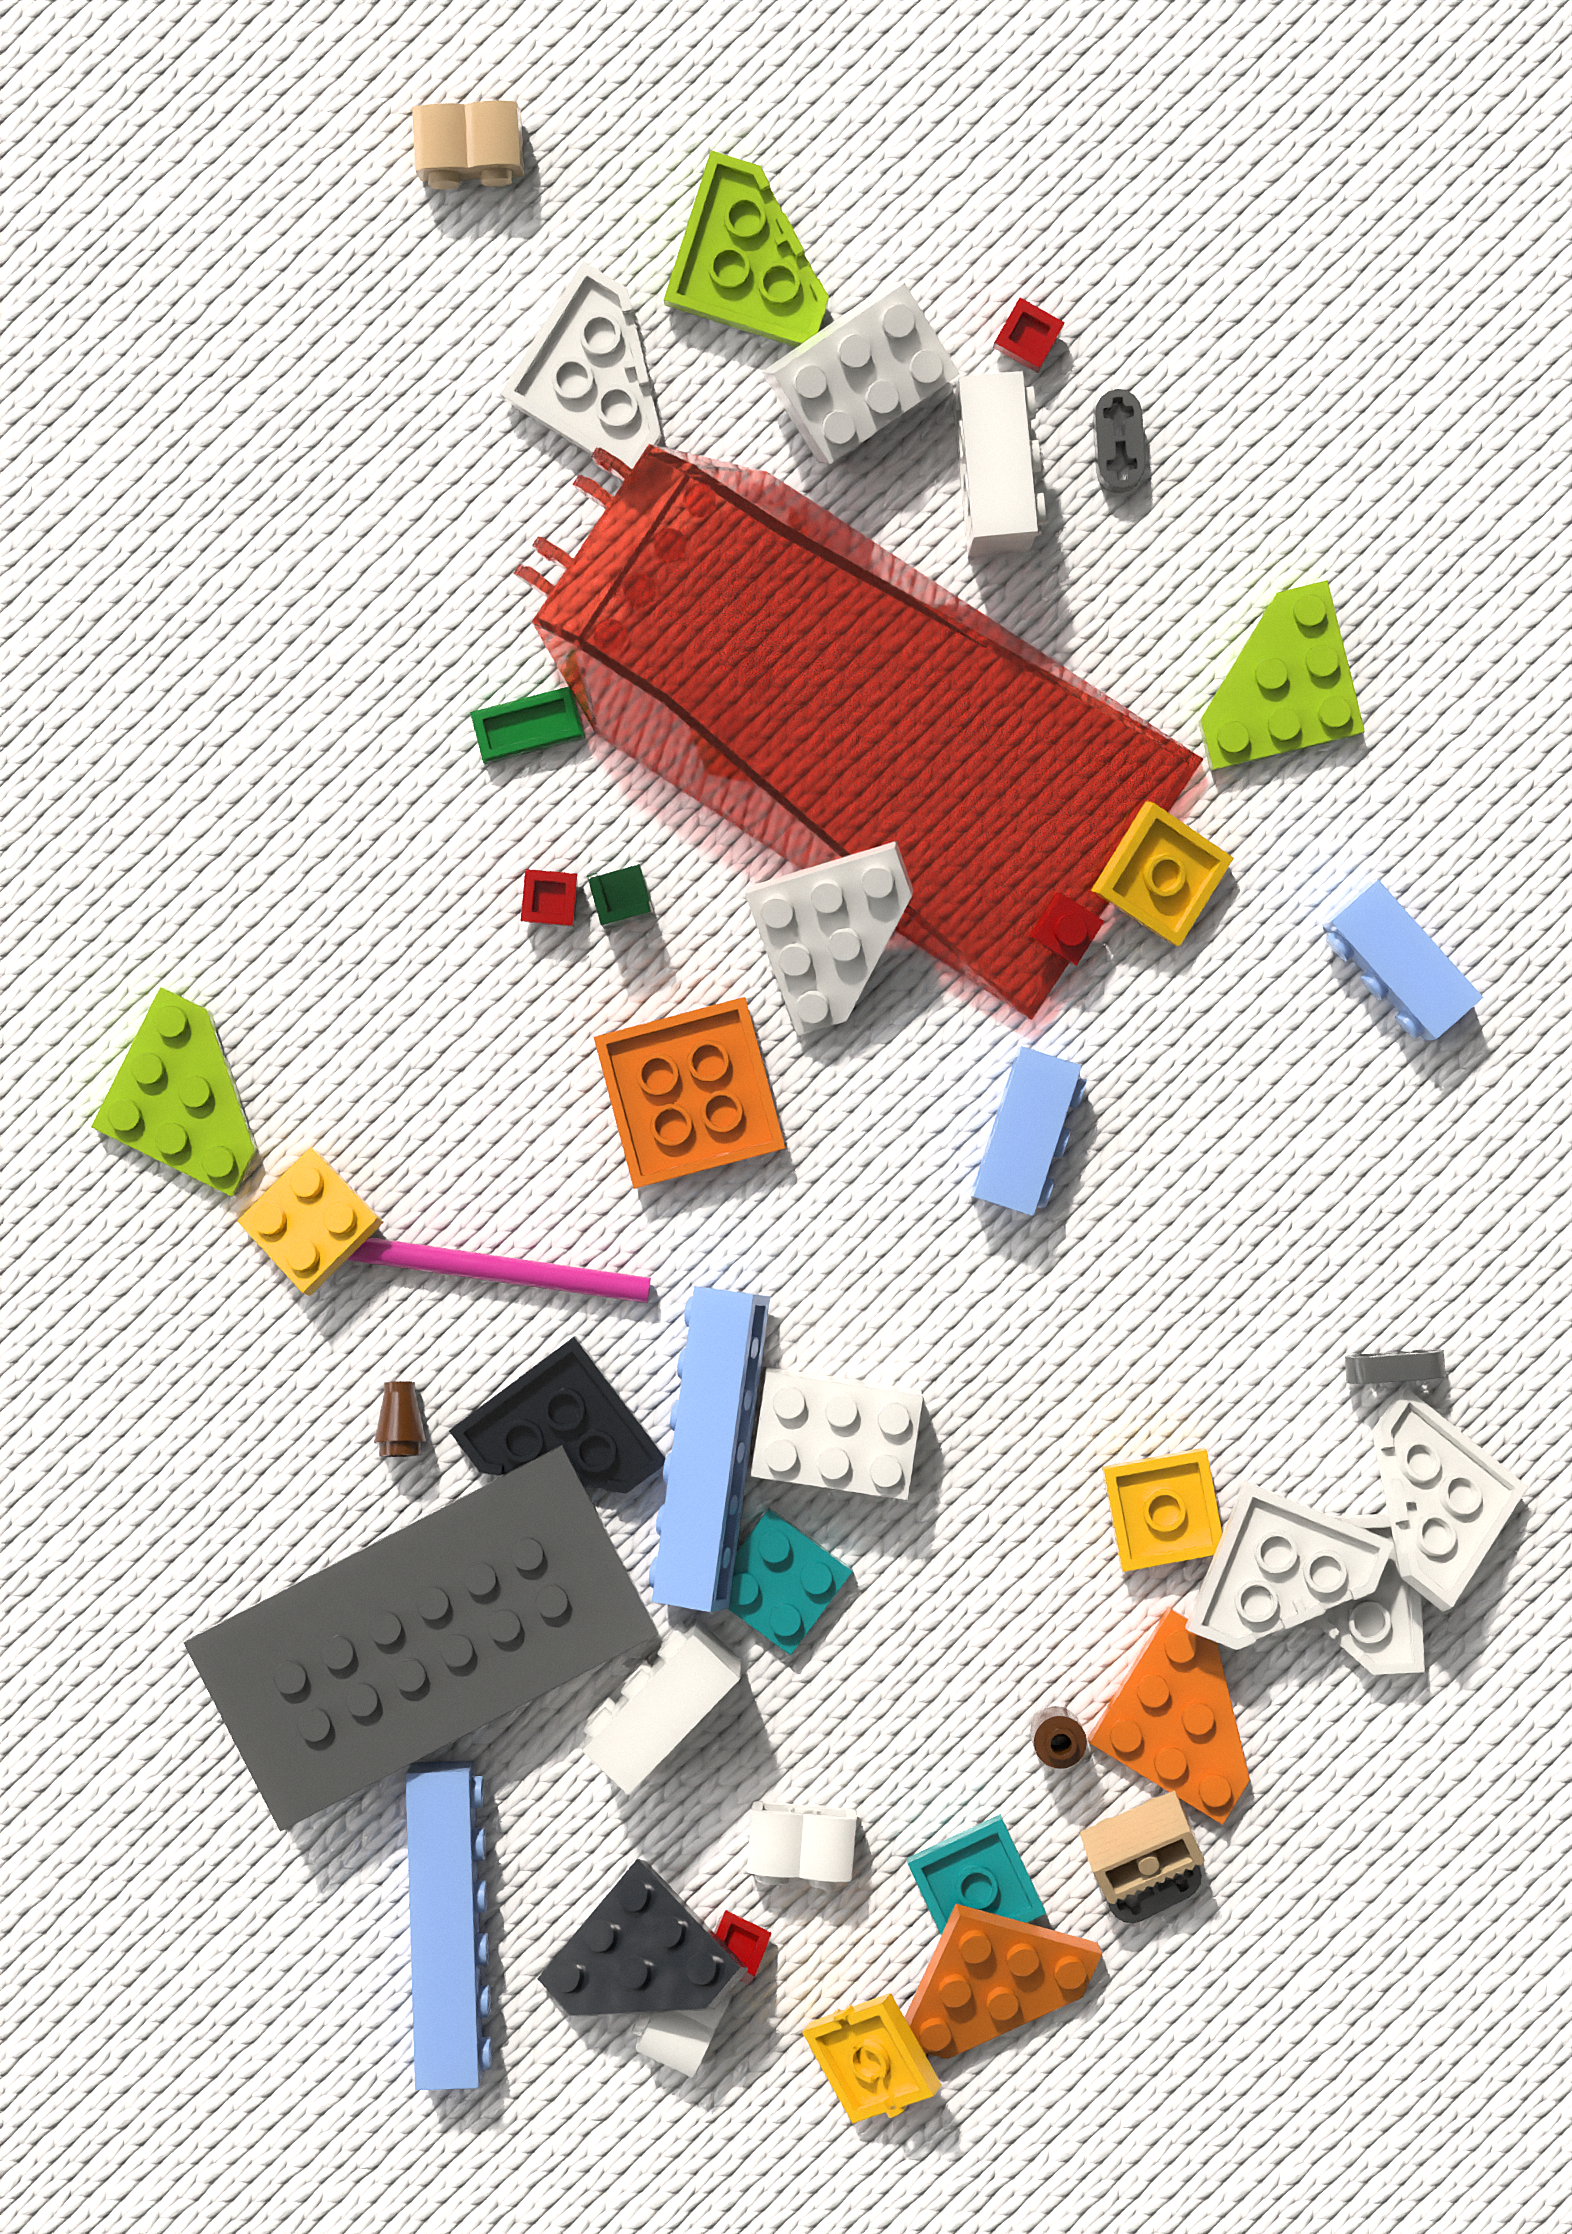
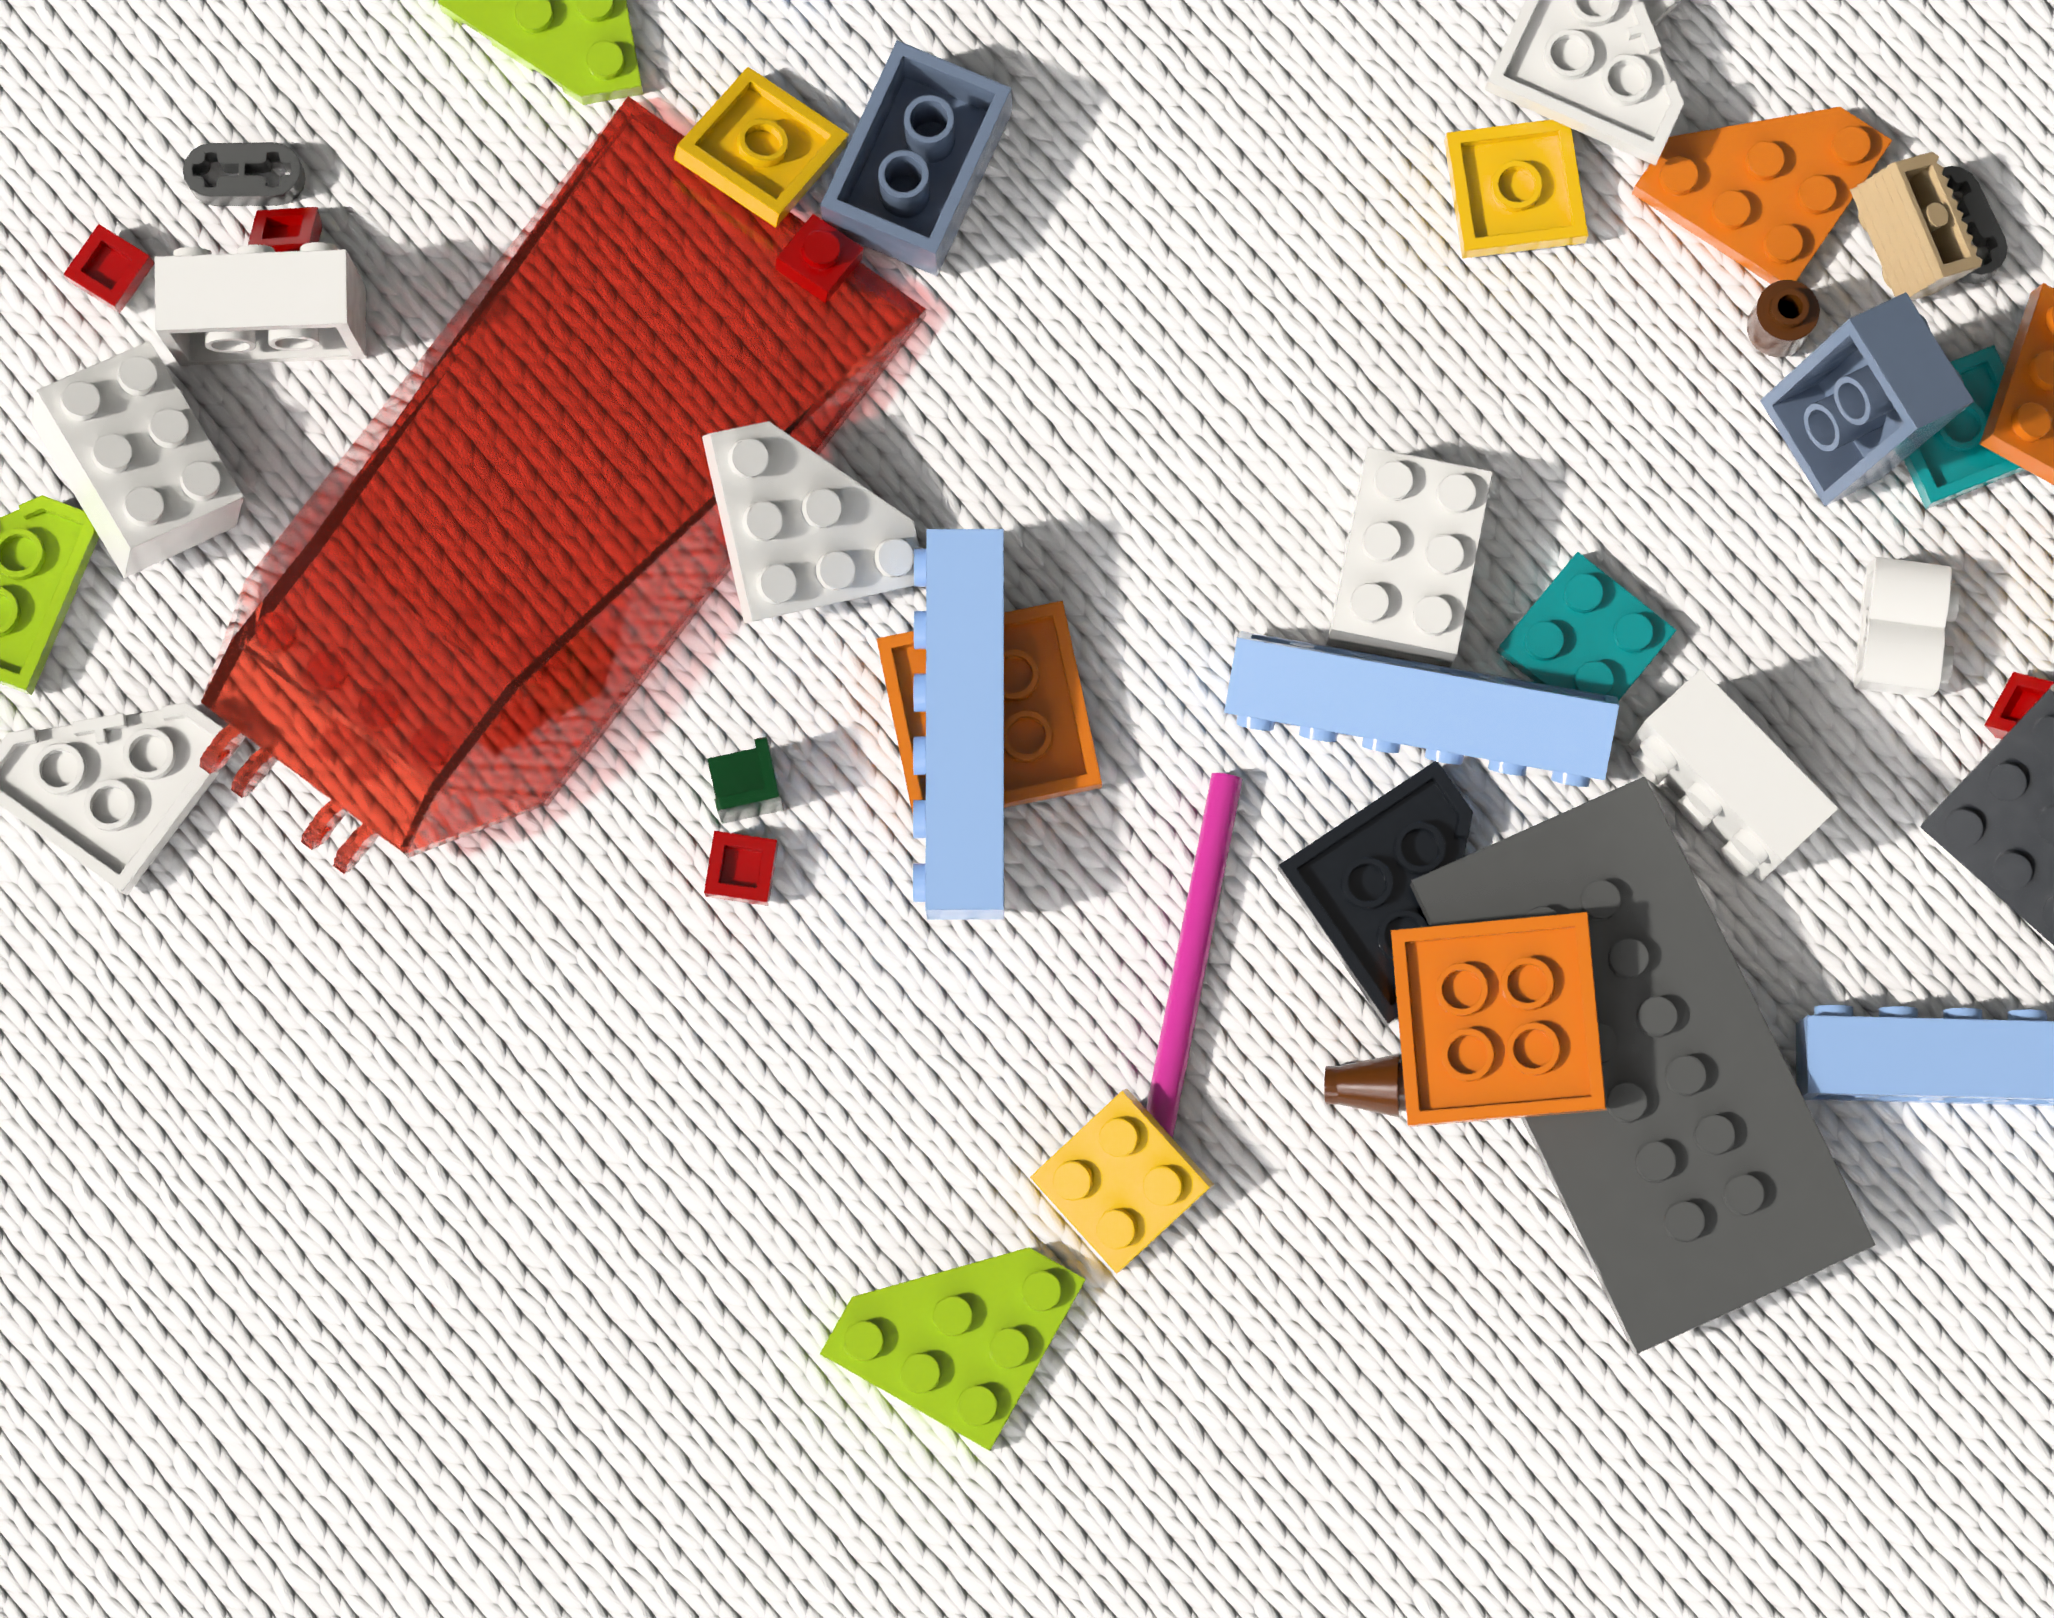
camera: 85 degrees left, 10 degrees down
(443, 1522) = (1498, 1020): none -> orange plate
(527, 725) = (528, 887): green tile -> none
(669, 1073) = (963, 724): none -> light blue brick
(980, 1811) = (1866, 399): none -> sand blue brick
(1028, 1131) = (1057, 318): light blue brick -> none
(1064, 480) = (286, 228): none -> red plate
(1158, 1005) = (917, 157): none -> sand blue brick

